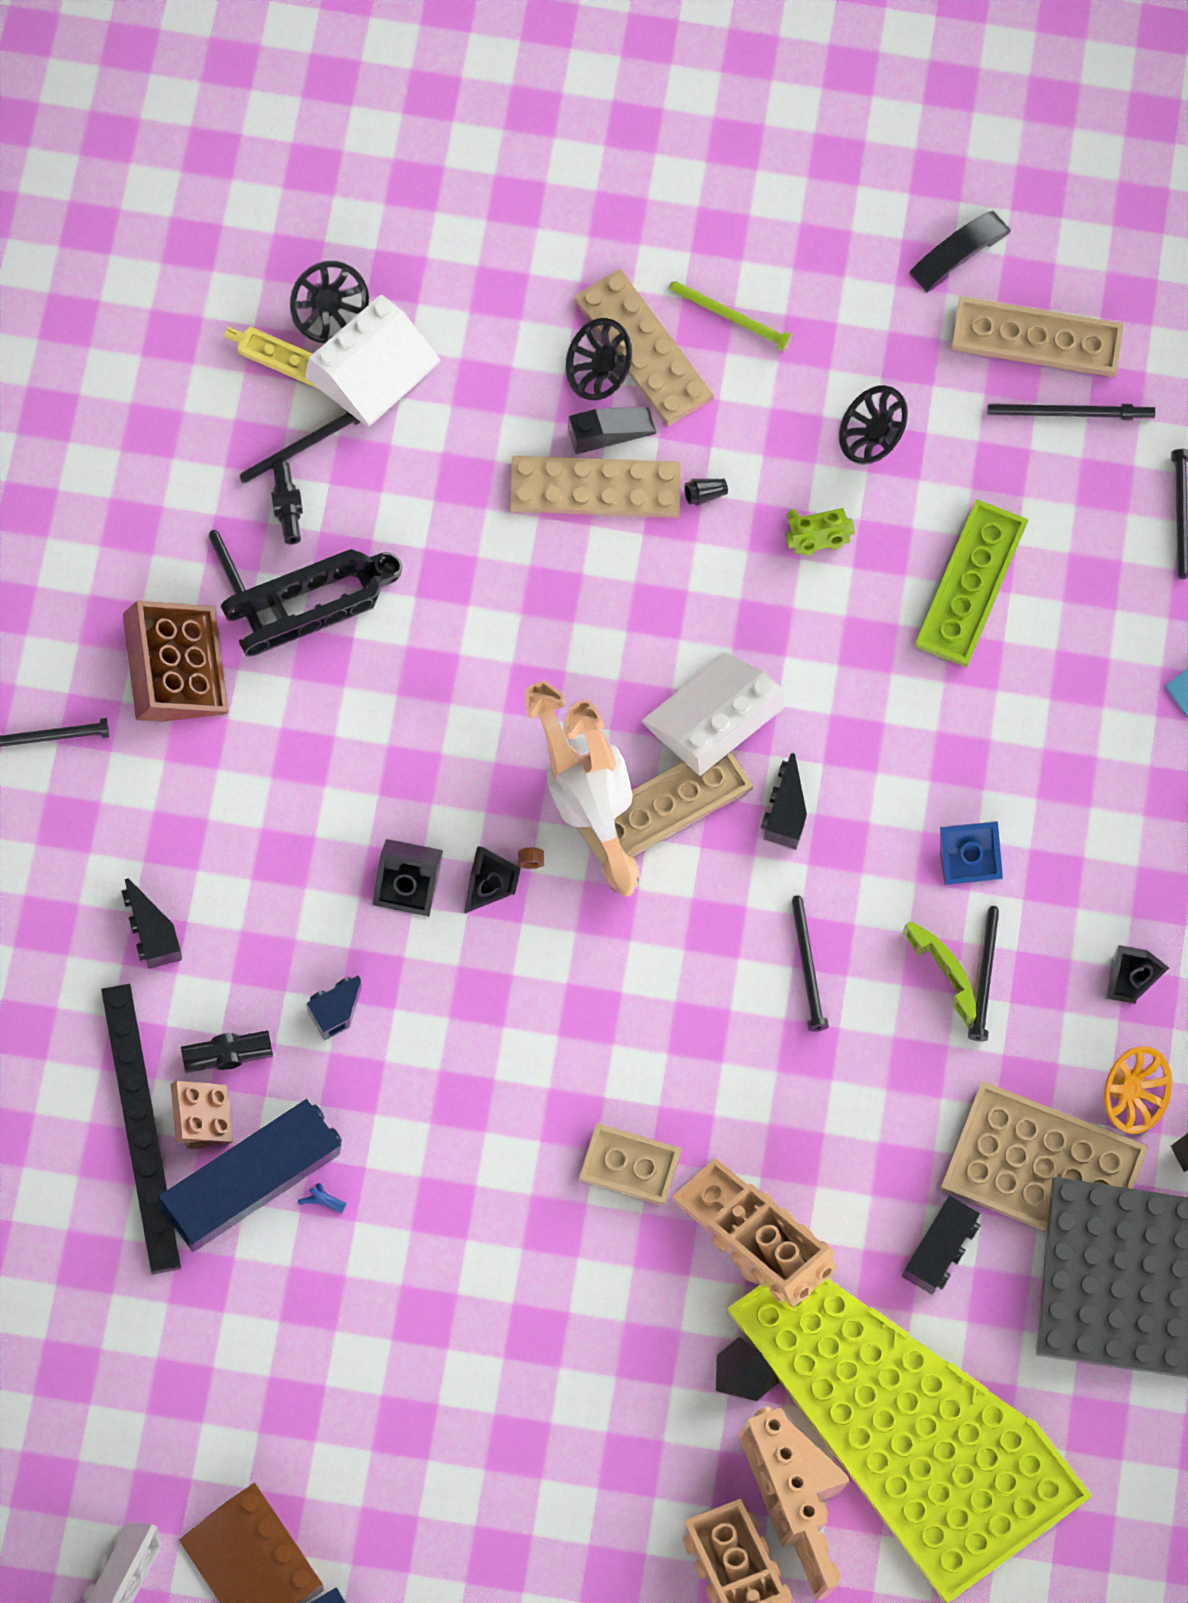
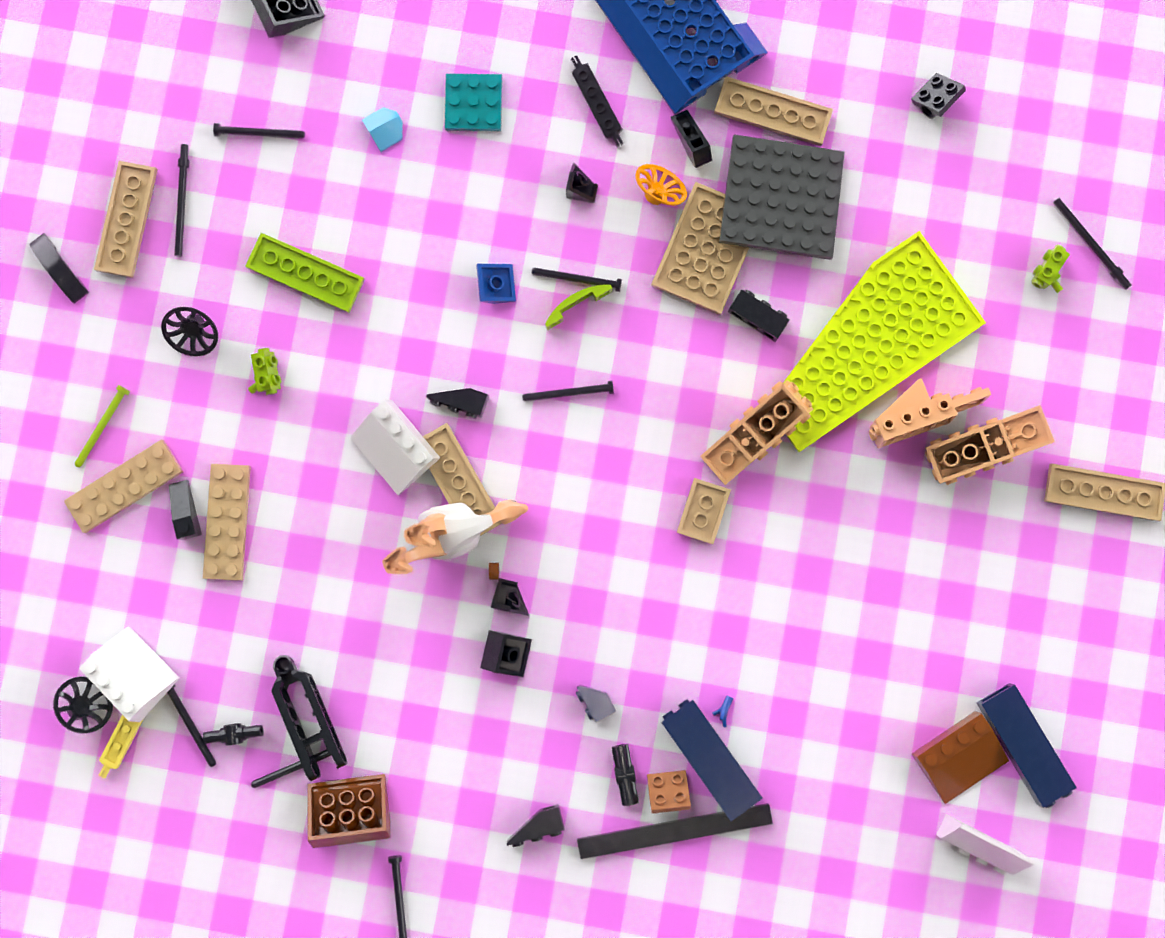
camera: 80 degrees left, 15 degrees up
(605, 361) = (136, 512): black wheel -> none
(704, 490) = (232, 447): black cone -> none
(743, 1371) = (839, 444): black slope -> none

